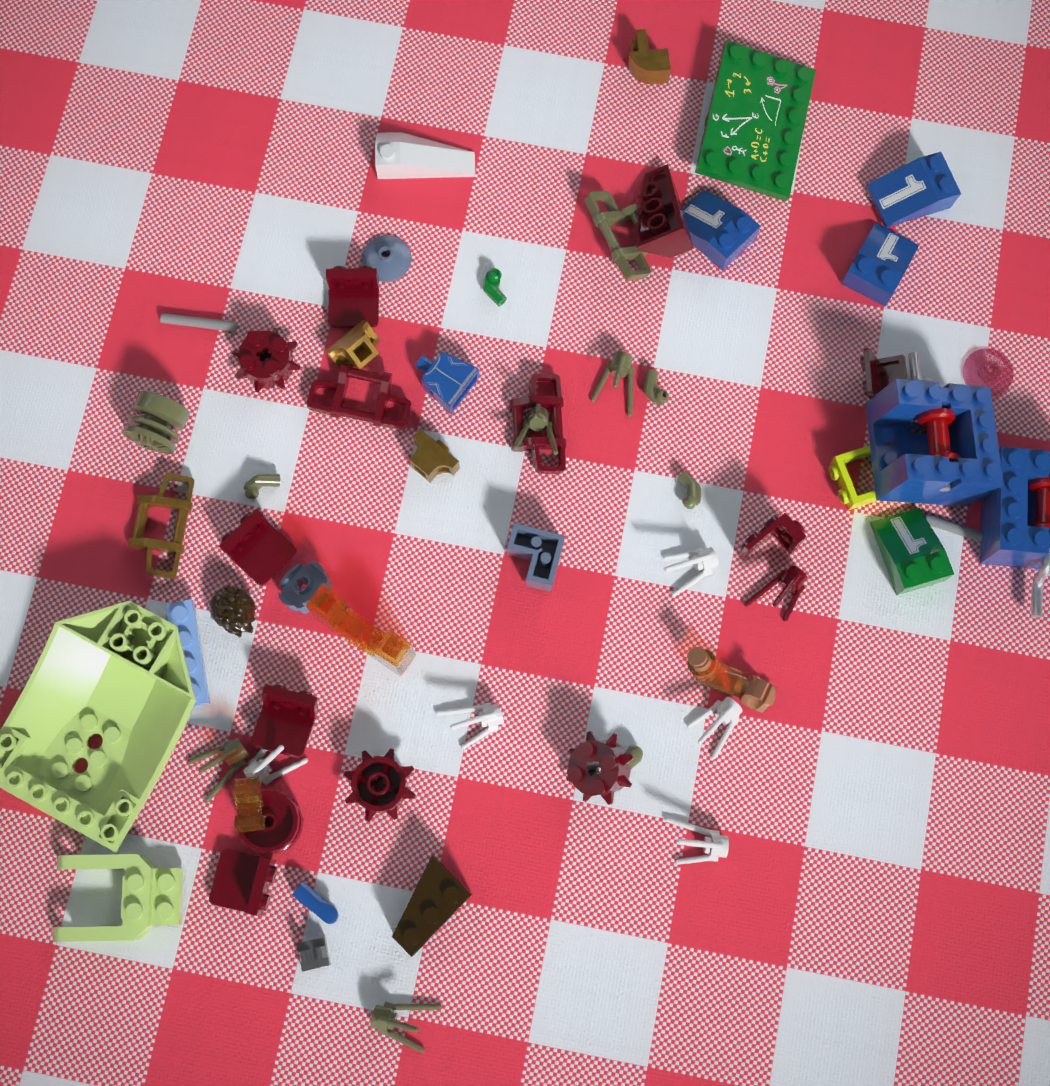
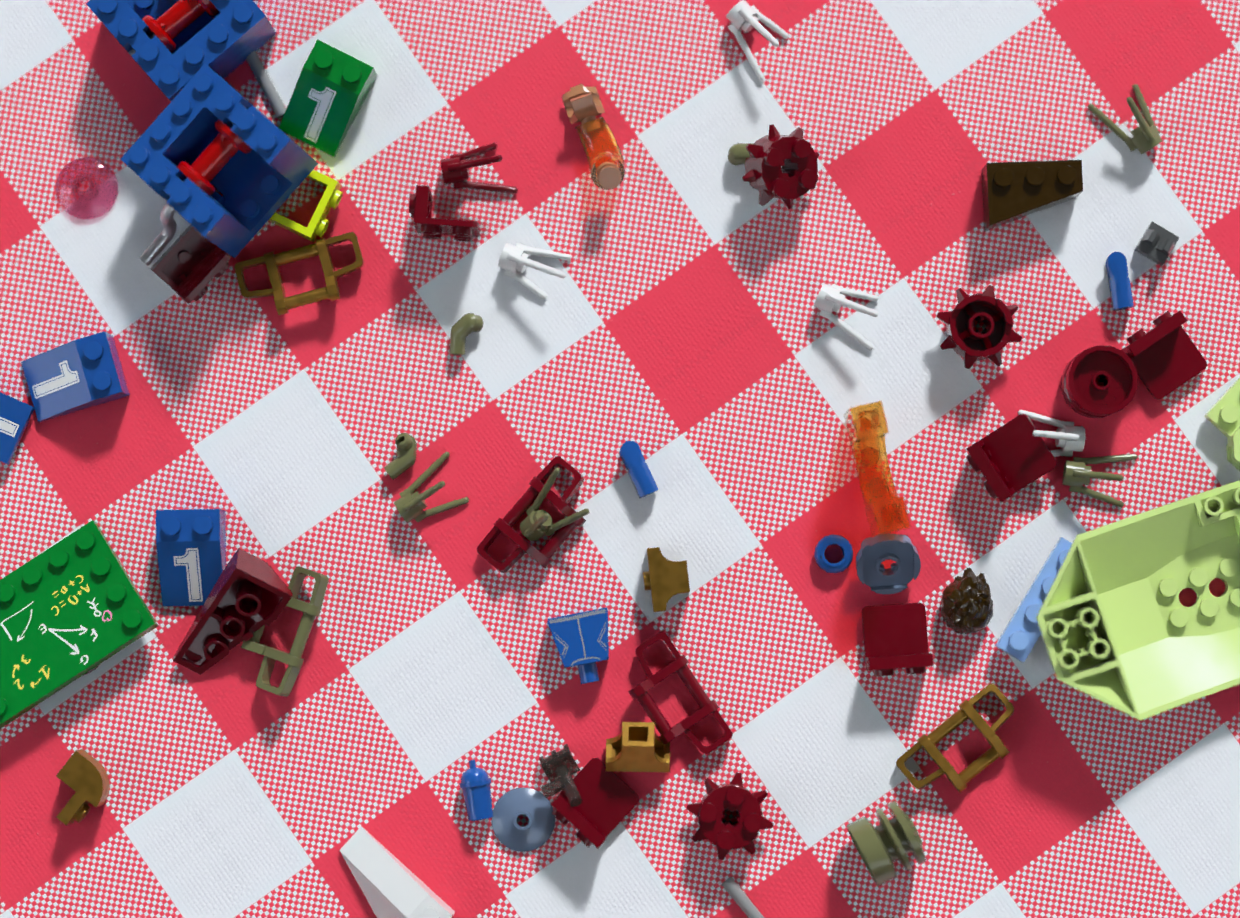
camera: 130 degrees left, 10 degrees up
(248, 801) = (1107, 405): clear orange leg -> none
(258, 481) = (837, 702): olive arm -> none
(338, 556) = (847, 550): none -> blue piece
(393, 299) = (559, 770): none -> clear smoke arm
(426, 245) = (476, 793): none -> blue piece
(491, 287) = (454, 695): green arm -> none
(509, 506) = (637, 469): none -> blue bar
(540, 548) = (650, 394): sand blue brick -> none
(726, 713) = (626, 112): white plant -> none
(841, 427) = (273, 260): none -> pearl gold bar

